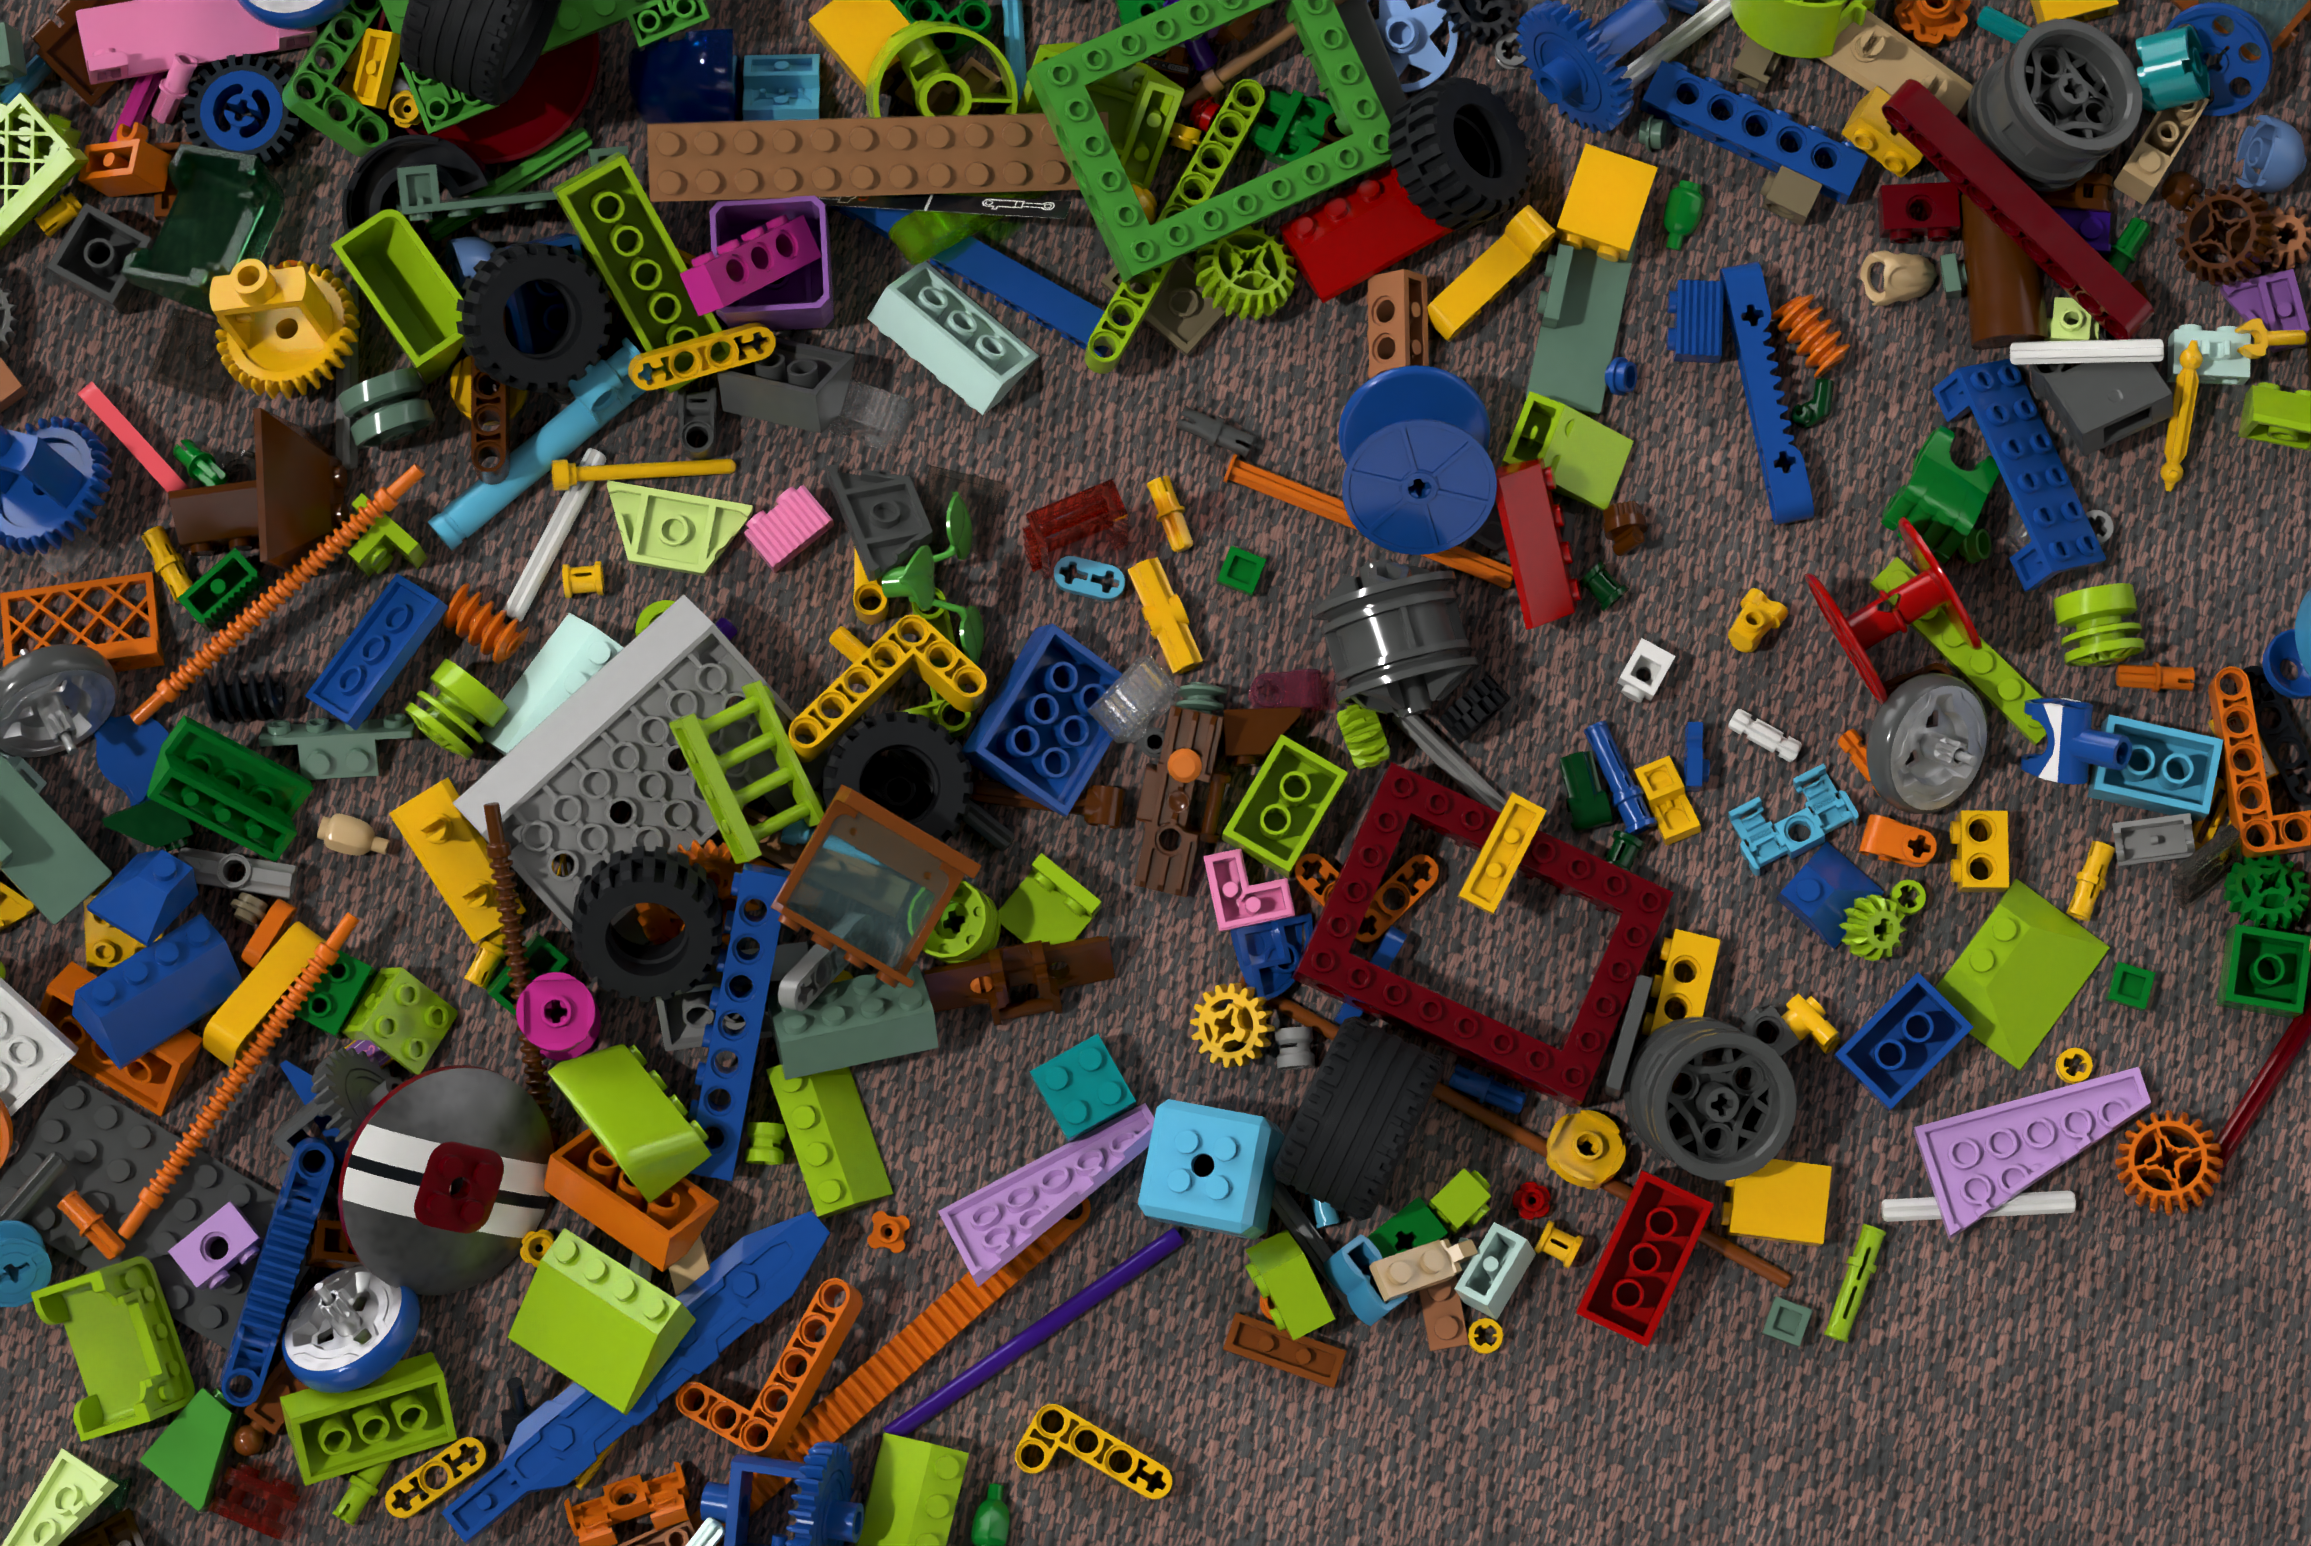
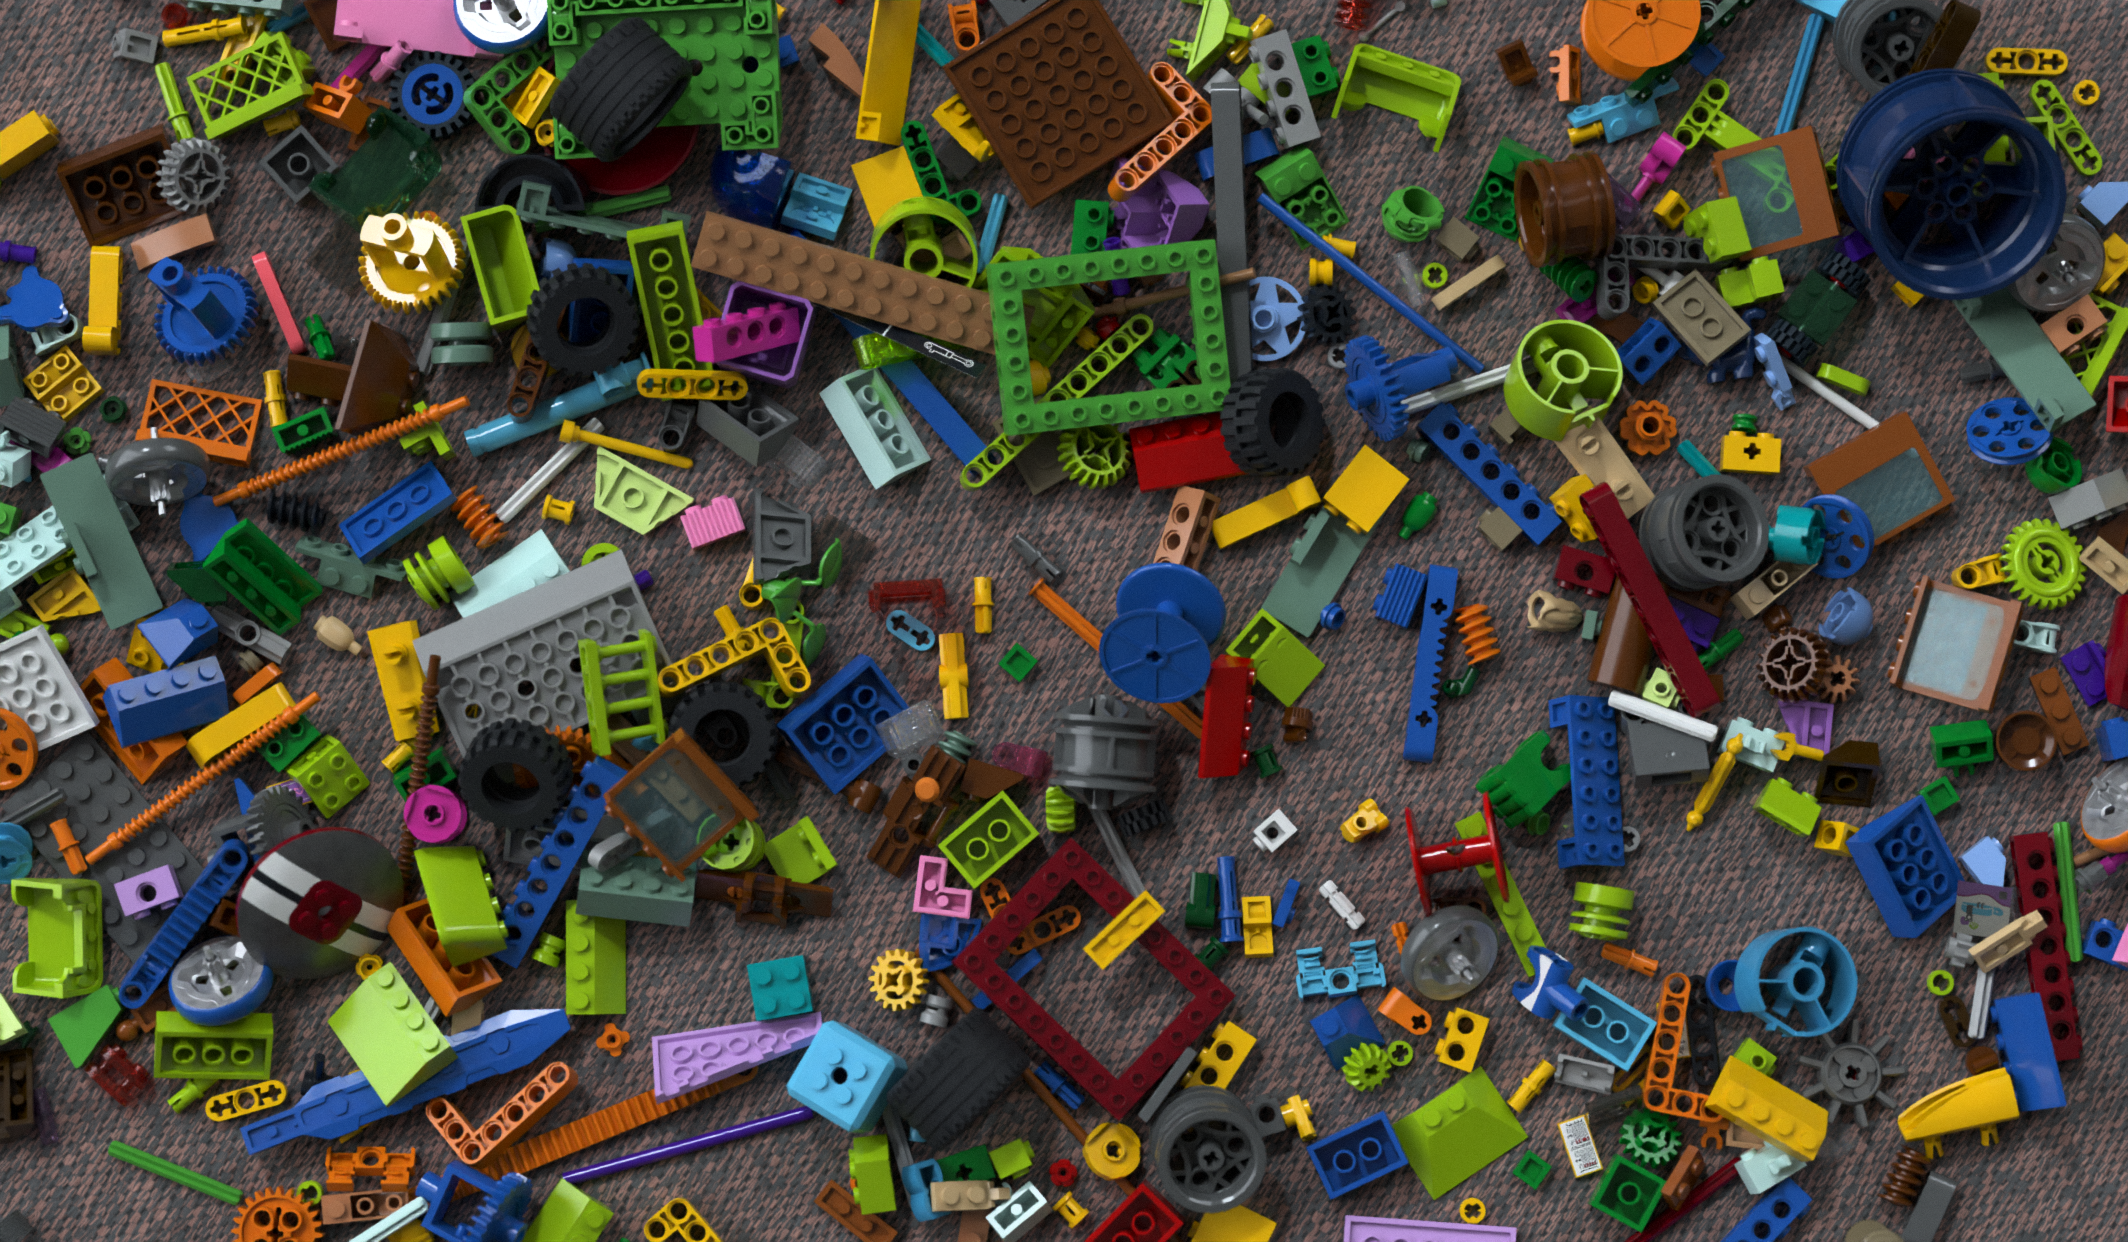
camera: 20 degrees right, 5 degrees up
(2180, 936) = (1579, 1146): none -> tile

